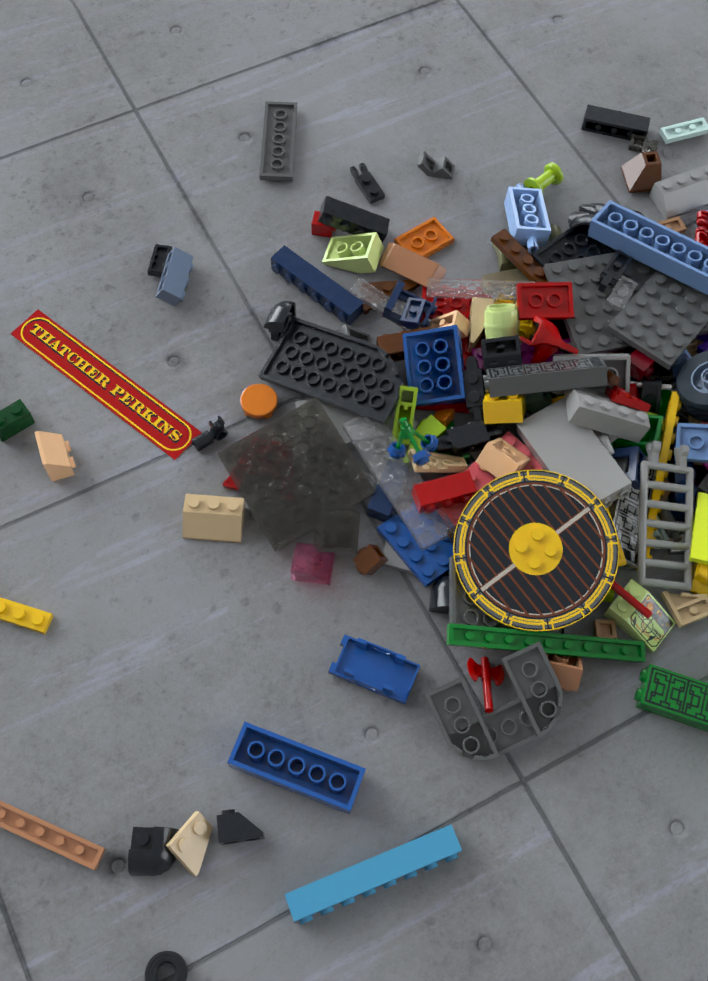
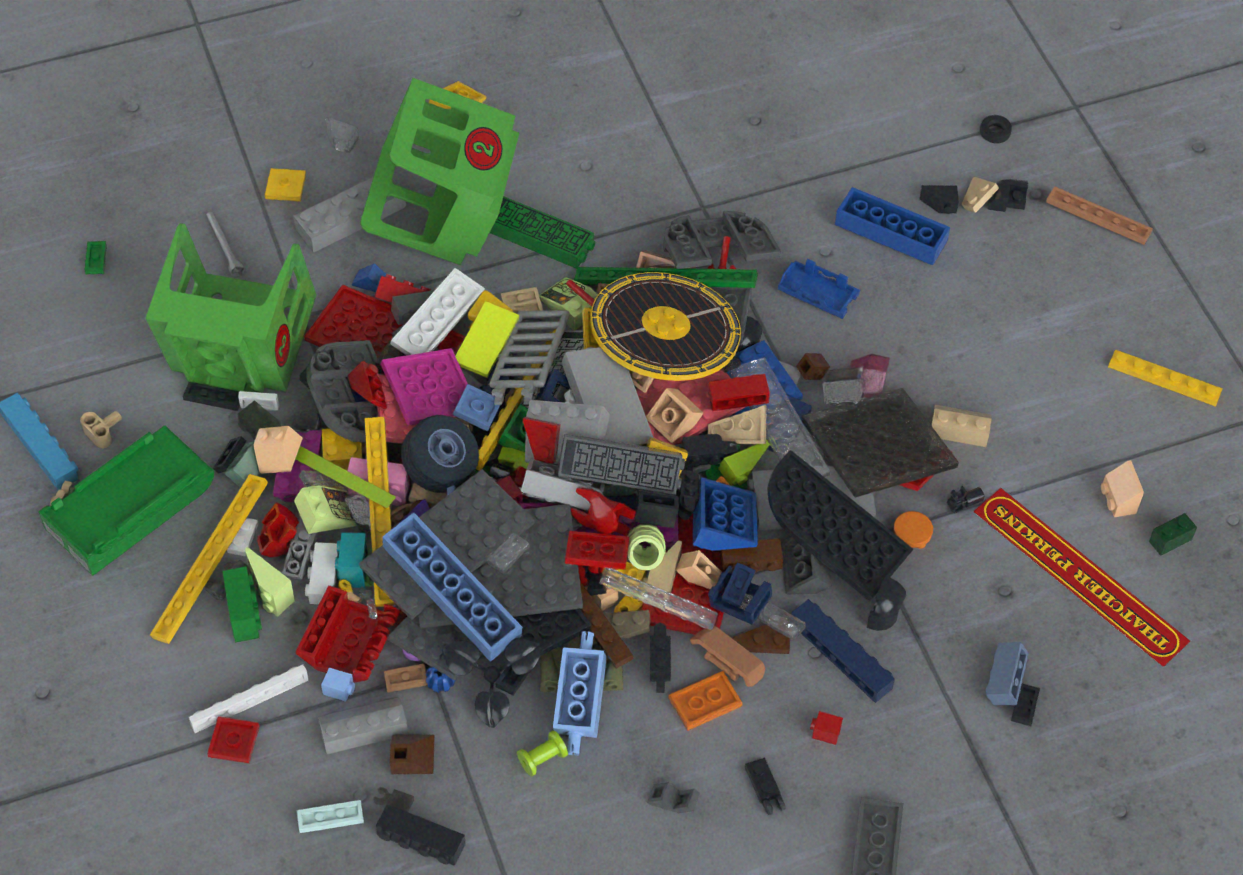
camera: 170 degrees left, 10 degrees down
(352, 218) = (791, 713): black brick -> none
(354, 252) = (794, 685): yellowish green slope -> none
(373, 873) = (835, 161): dark azure brick -> none
(405, 408) = (761, 478): lime slope -> none
(428, 443) = (776, 432): plant -> none
(467, 257) = (660, 657): none -> black hinge
(612, 379) = (550, 459): reddish brown plate -> none
(614, 270) = (508, 578): black hinge -> none

